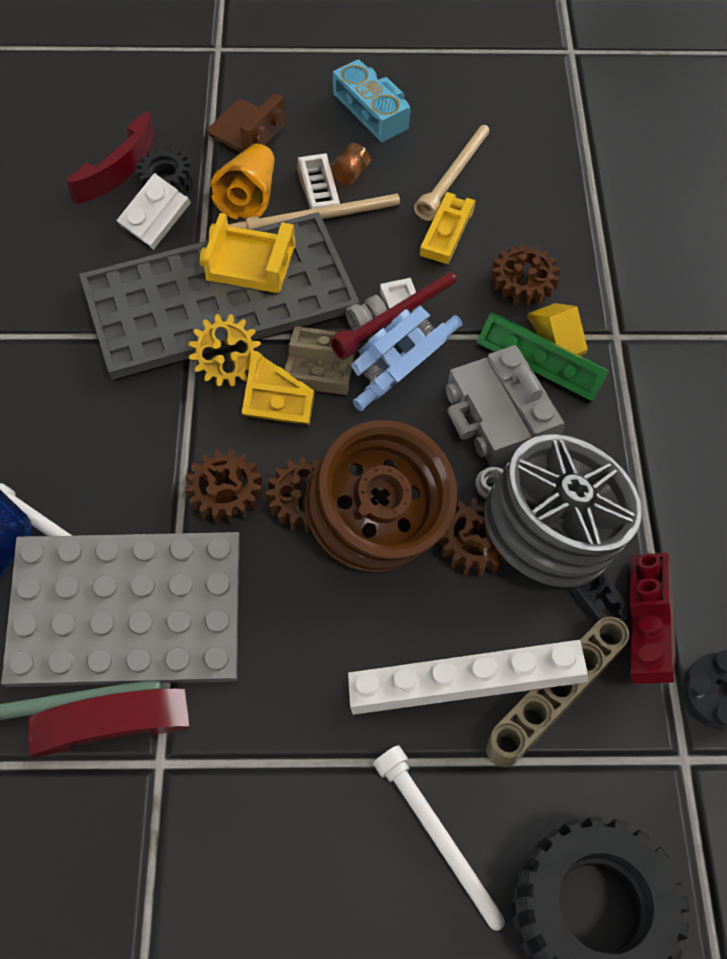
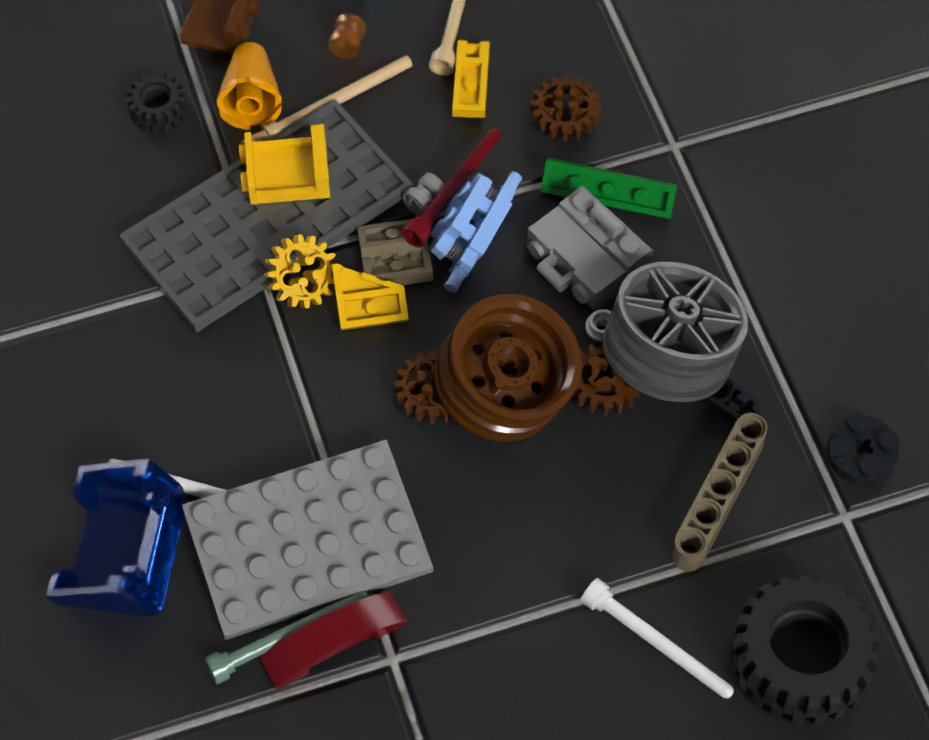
camera: 15 degrees left, 0 degrees up
(94, 181) = (88, 129): dark red slope -> none
(153, 211) = (165, 146): white plate -> none
(223, 486) = (355, 404): reddish brown gear -> none
(314, 164) = (317, 44): white slope -> none
(396, 291) = (446, 163): white plate -> none
(467, 677) = (637, 503): white plate -> none
(560, 325) = (616, 152): yellow slope -> none
(652, 619) = (782, 403): dark red slope -> none

